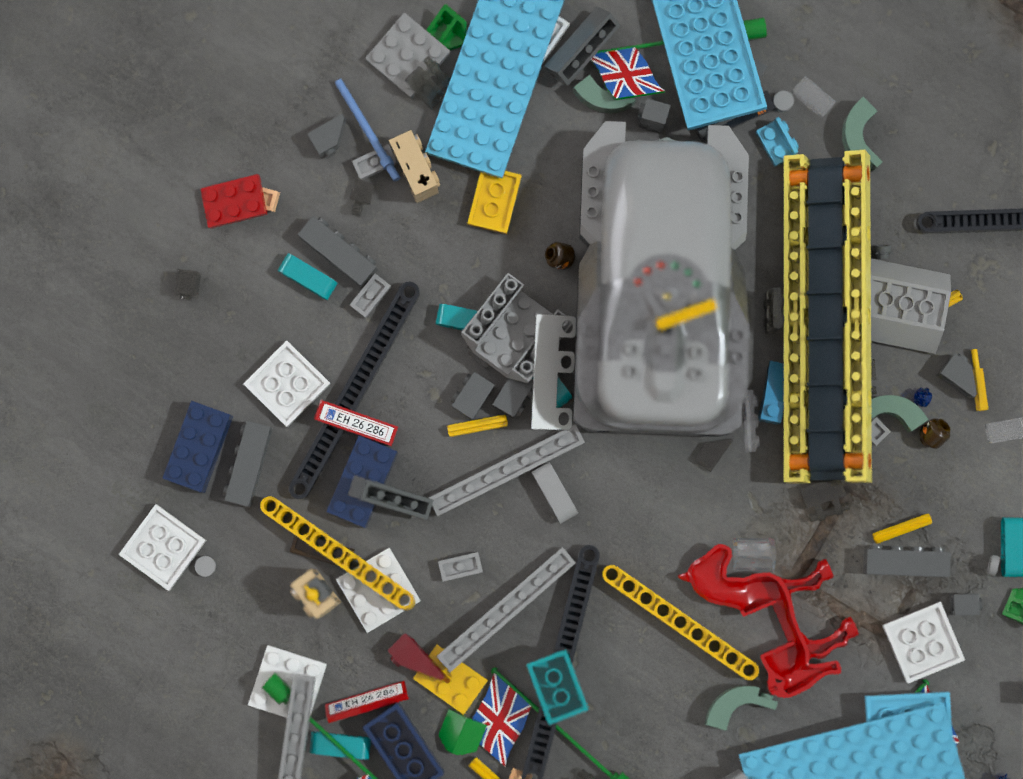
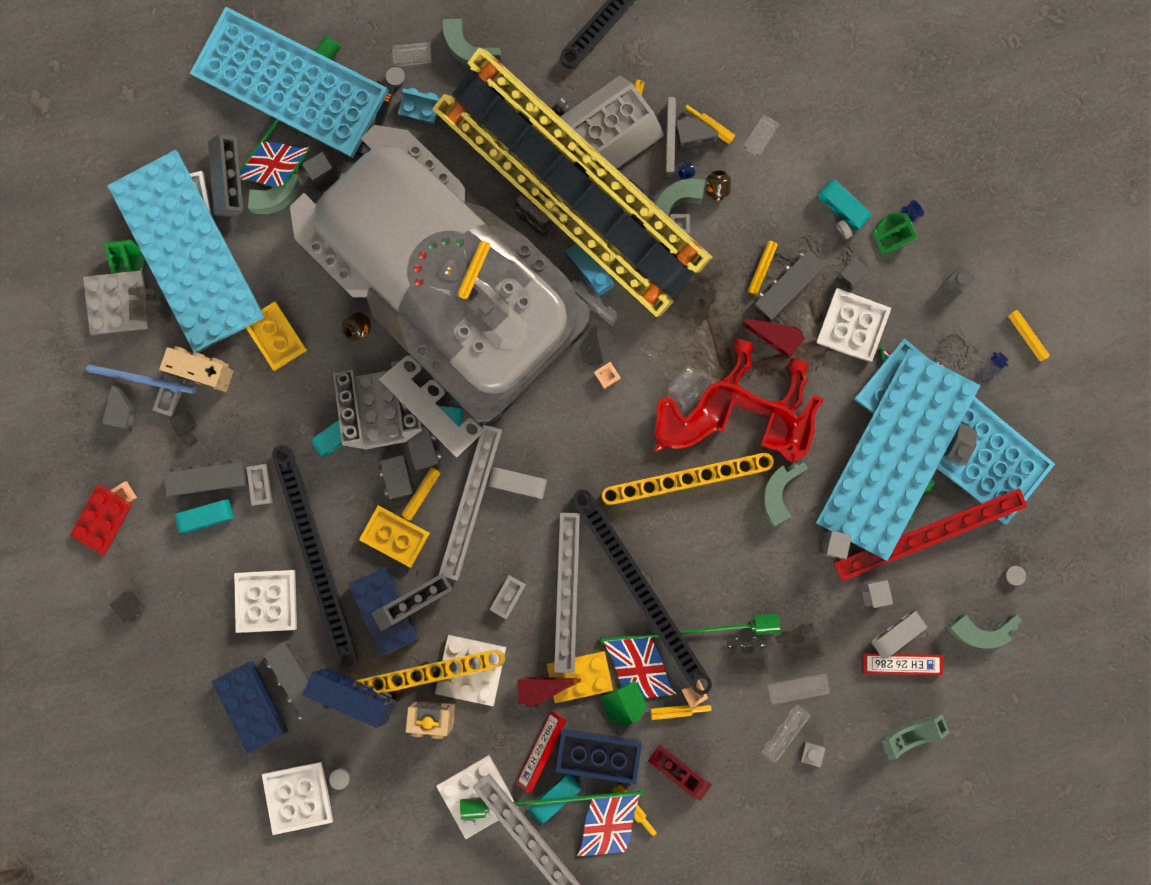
camera: 45 degrees left, 0 degrees up
(276, 518) = (350, 697): none -> dark blue brick
(355, 422) = (337, 577): tile -> none
(426, 436) = (394, 536): none -> yellow plate
(557, 687) = (654, 606): teal brick -> none
(703, 484) = (607, 375): none -> light nougat plate
(859, 592) = (779, 336): none -> dark red slope
(938, 360) = (670, 137): none -> light grey tile

